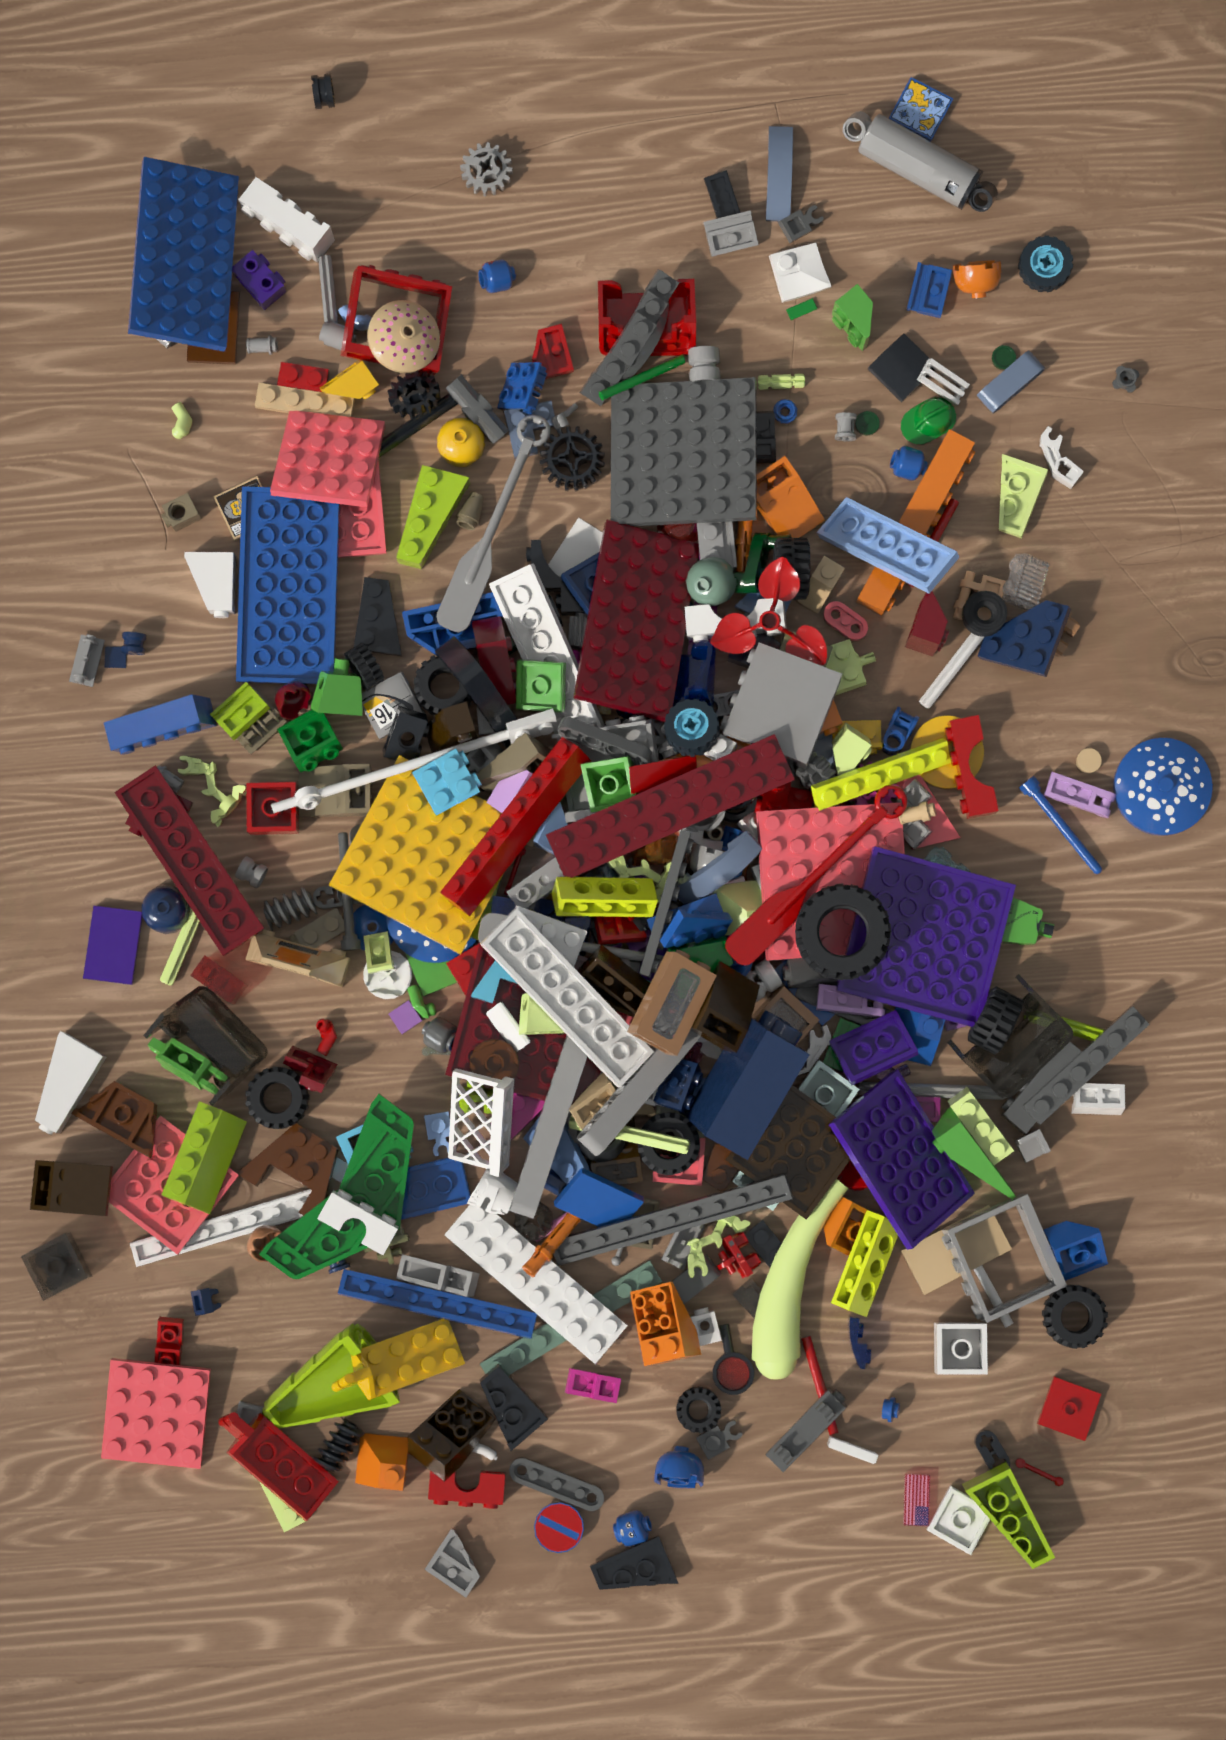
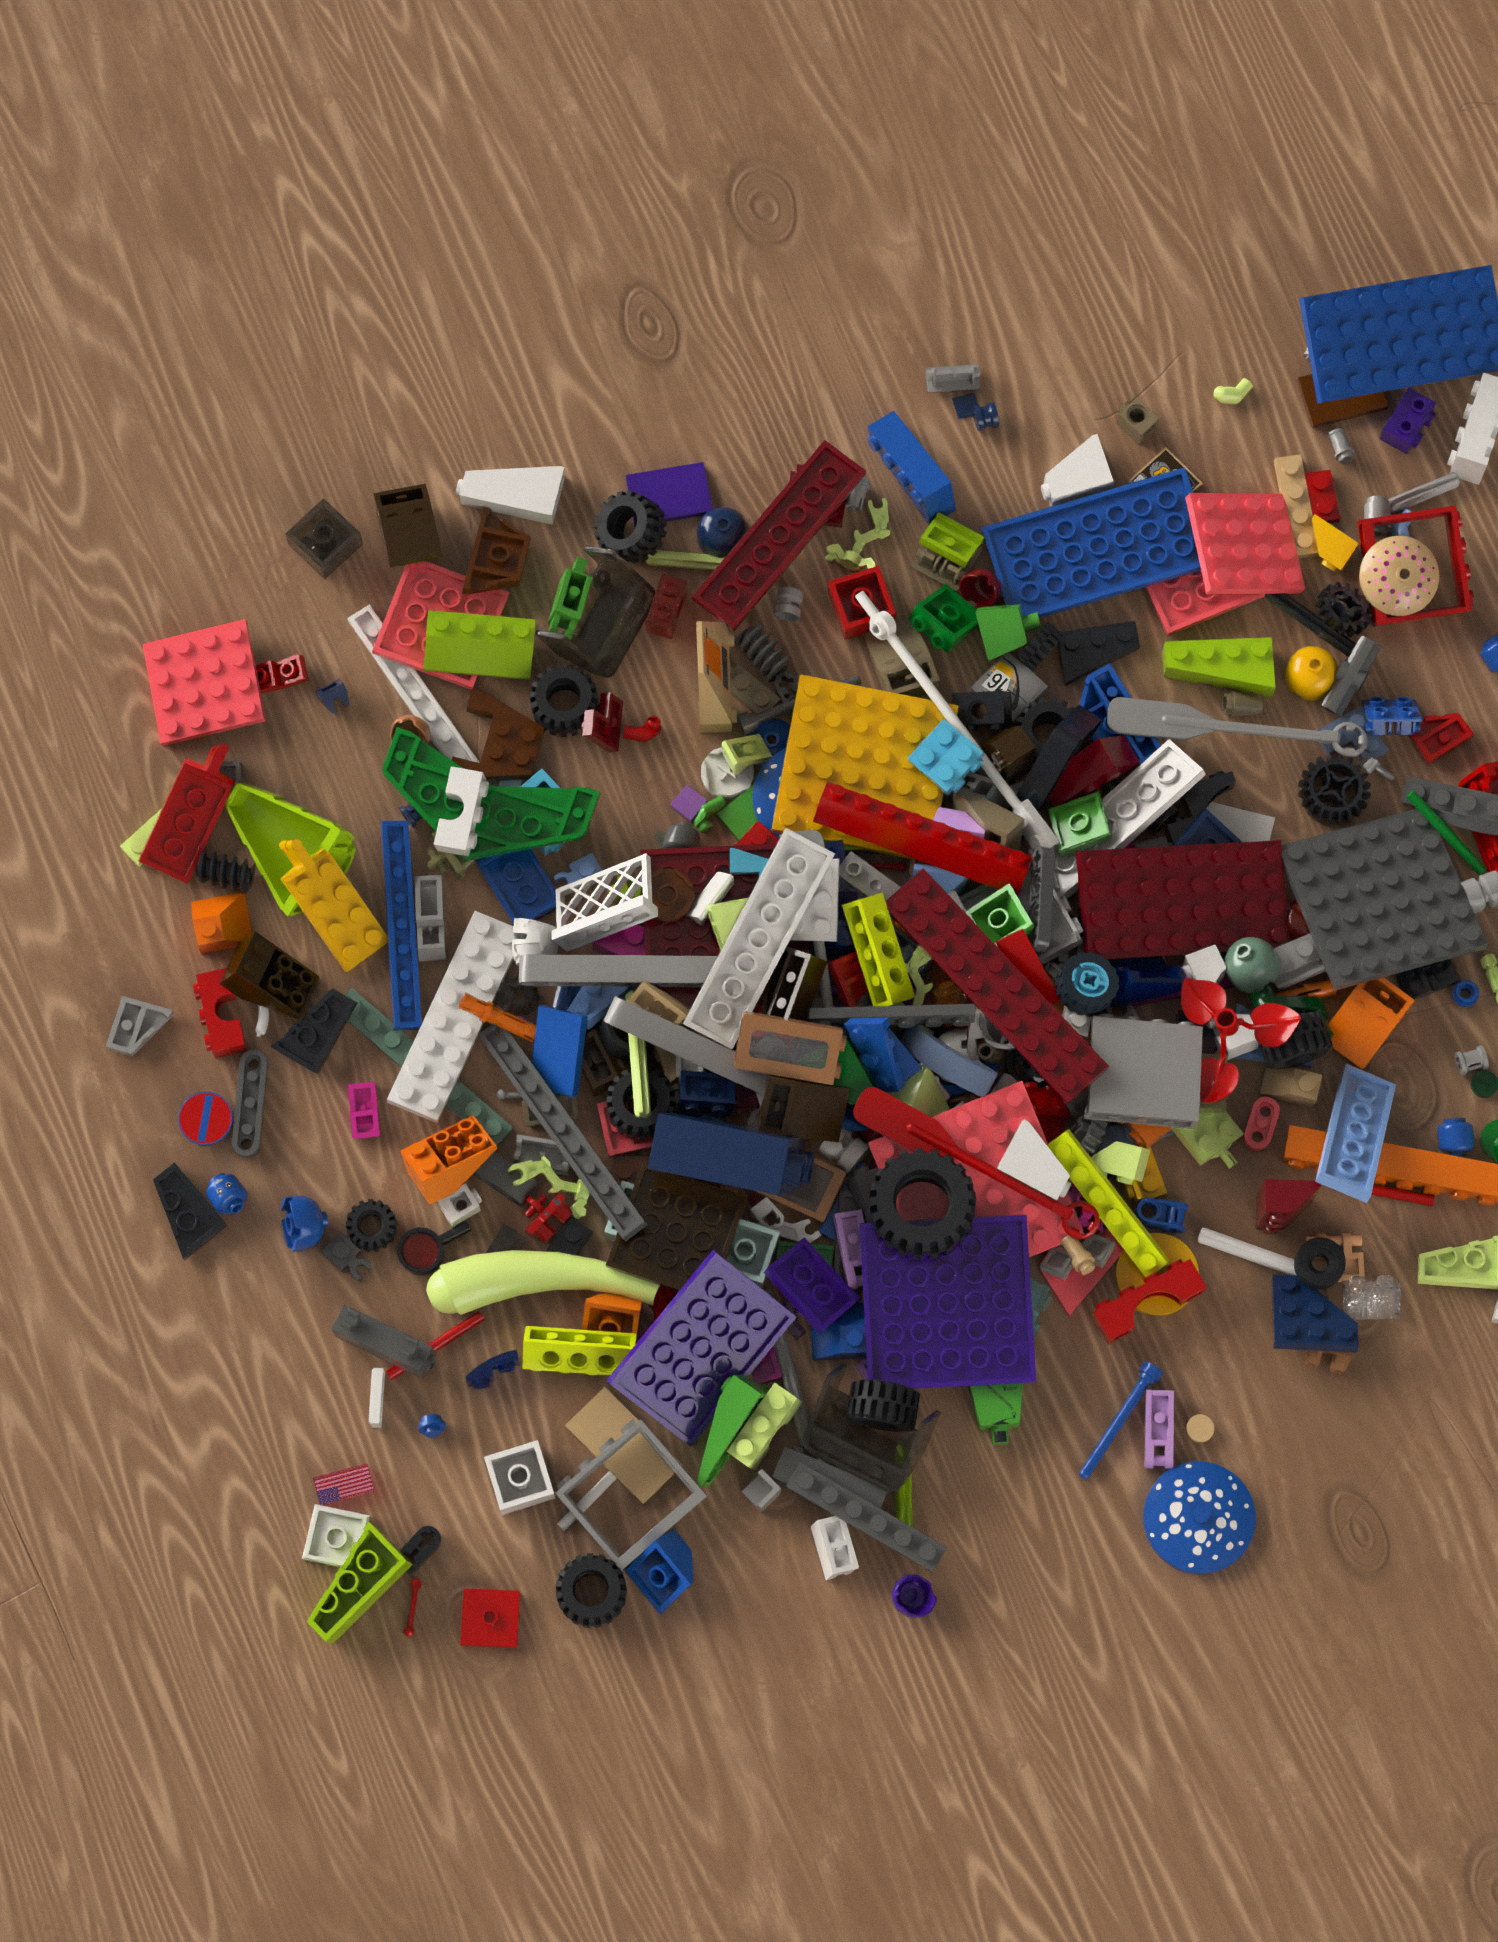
camera: 70 degrees right, 10 degrees down
(128, 1005) = (647, 533): none -> black tyre
(834, 826) = (1034, 1163): none -> white slope
(1161, 1046) = (913, 1596): none -> dark purple hair

